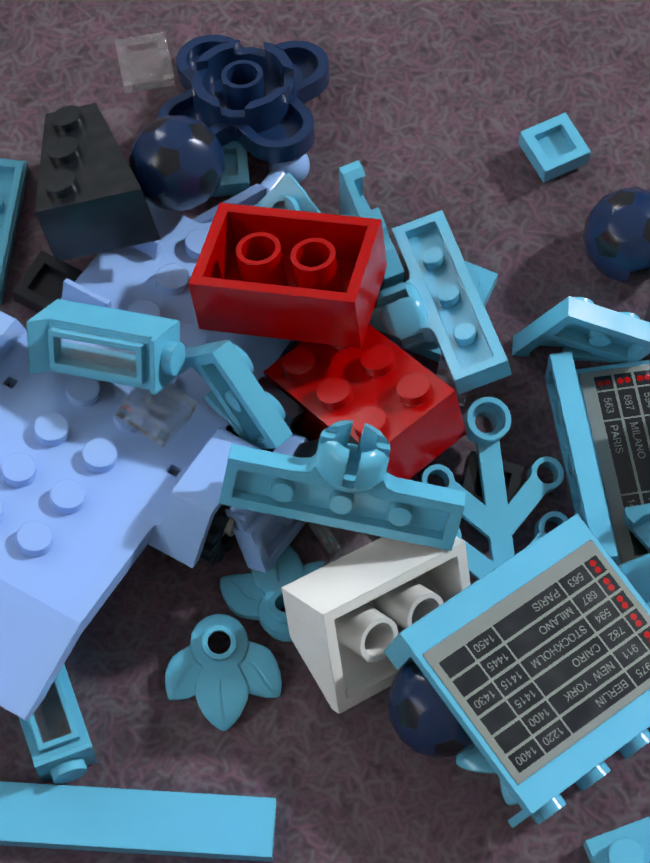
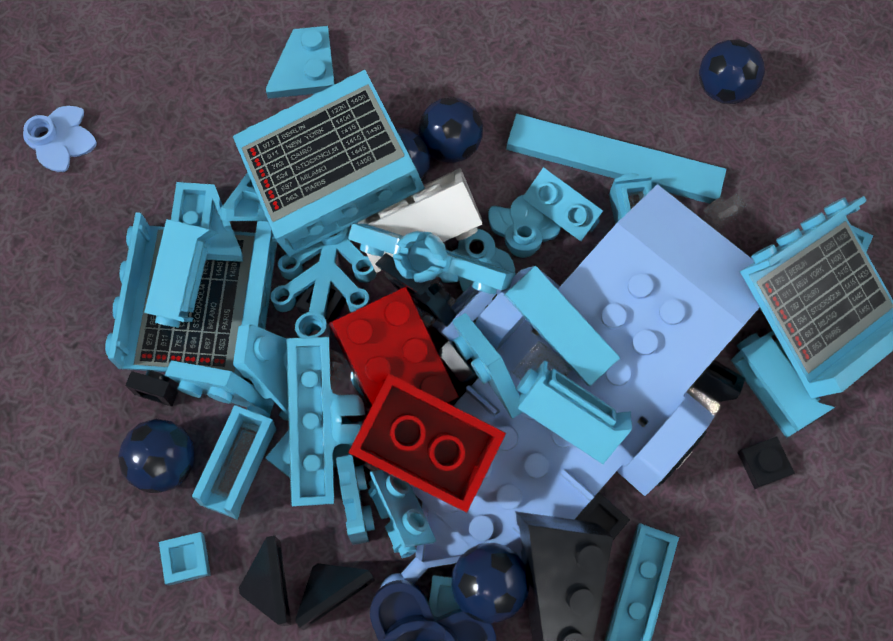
camera: 170 degrees left, 5 degrees up
(140, 450) = (562, 326): none -> medium azure tile
(154, 696) = (563, 204): none -> medium azure hinge
(370, 140) = (328, 589): none -> black slope
(370, 781) = (451, 129): none -> dark blue piece
(444, 139) = (266, 583): none -> black slope
(531, 259) = (235, 460): none -> medium azure window
(541, 368) = (263, 360): none -> medium azure wing

